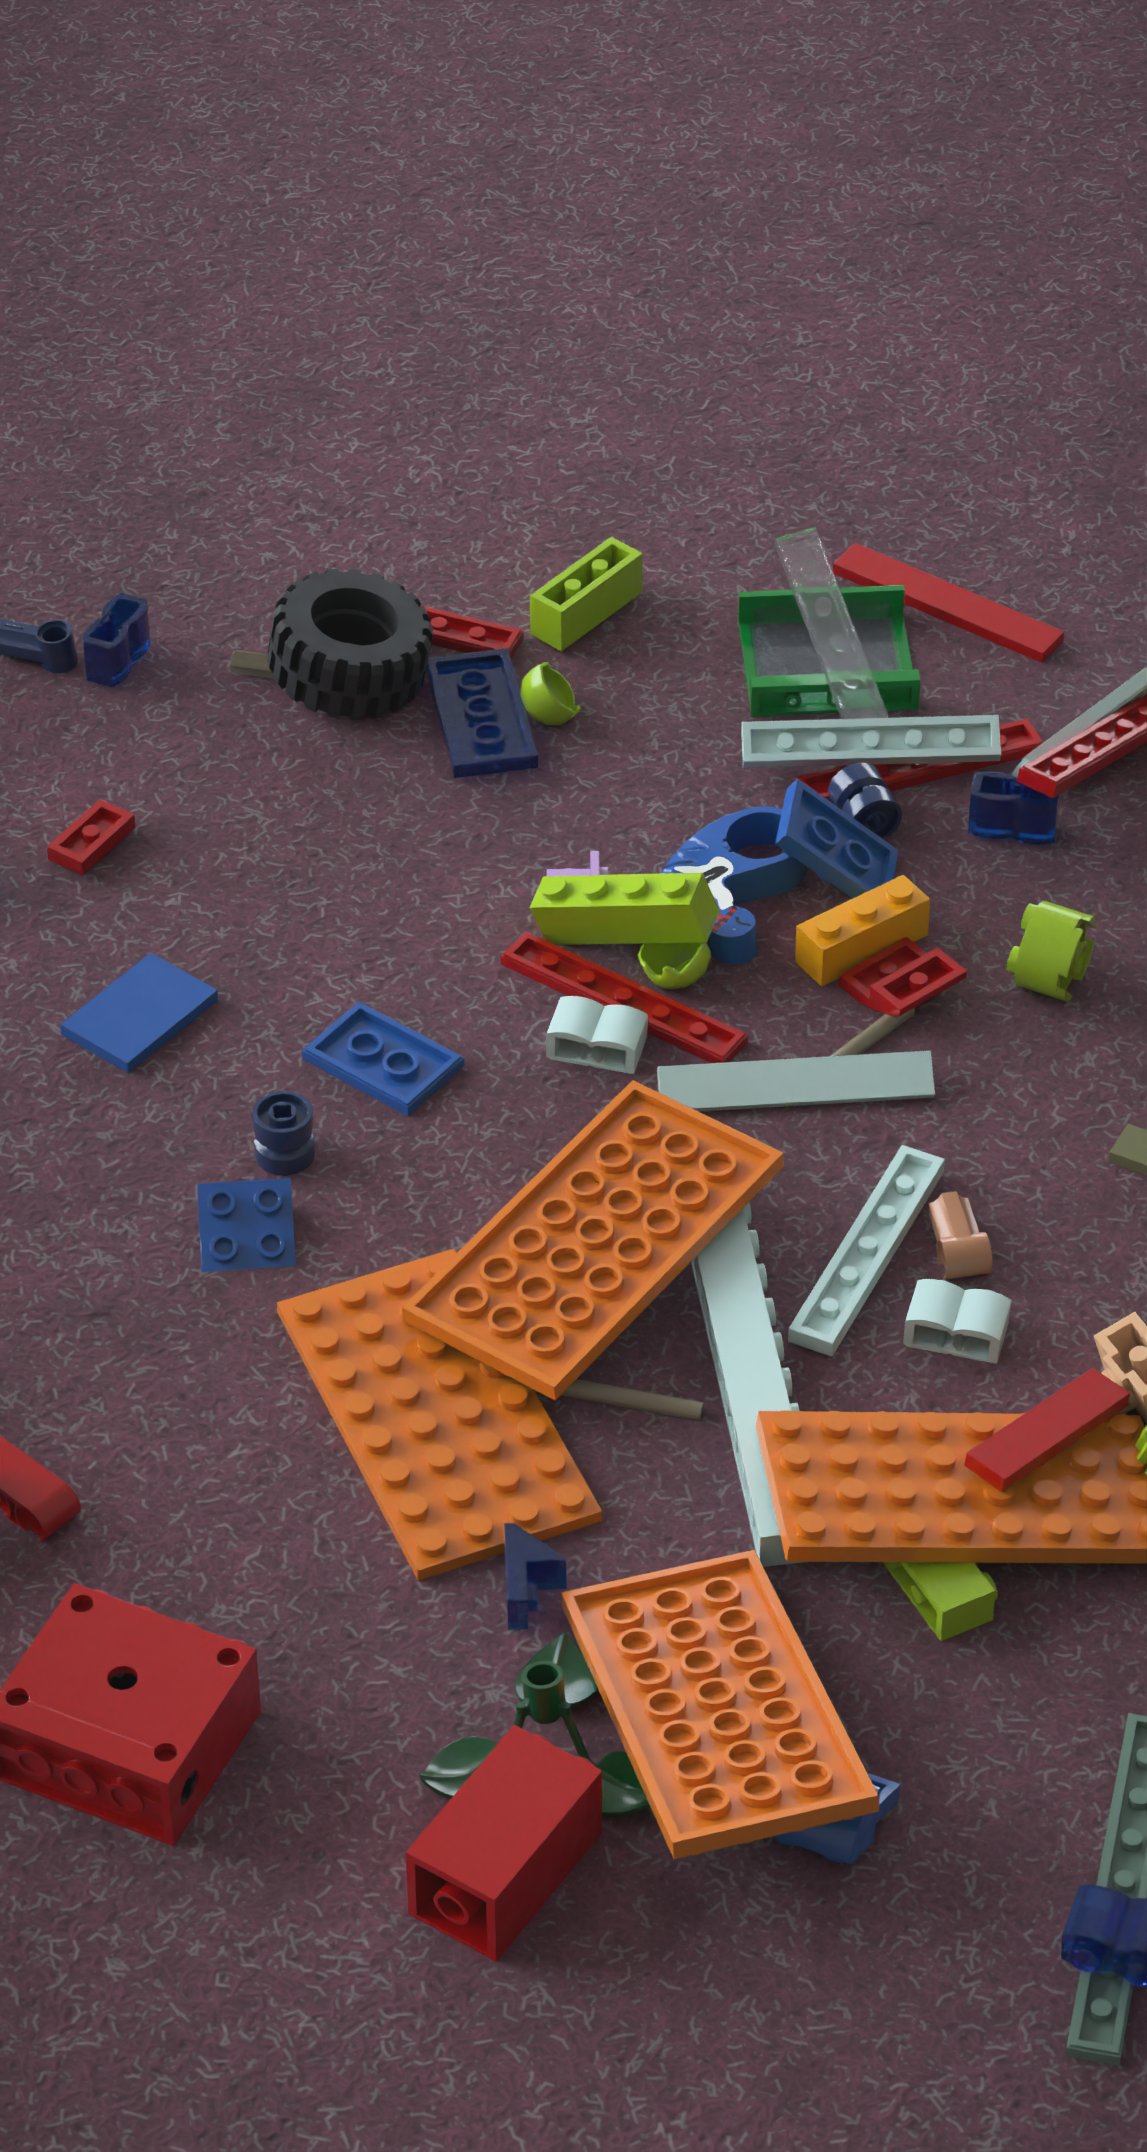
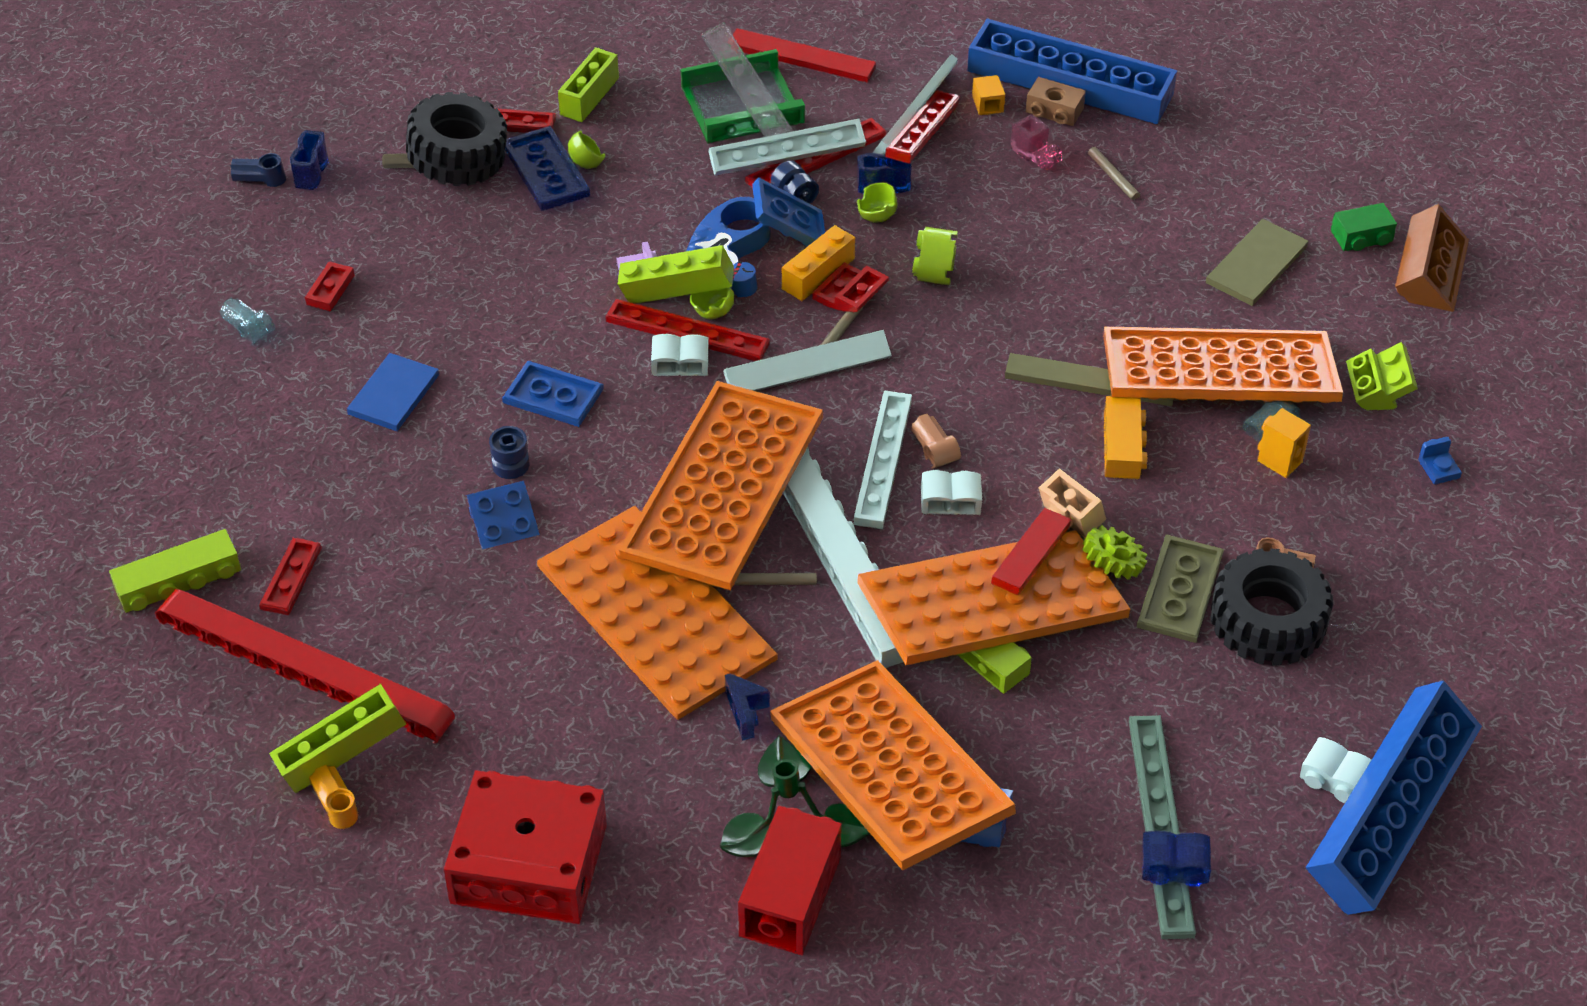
camera: 15 degrees left, 5 degrees up
(991, 853) = (878, 202): none -> lime hair

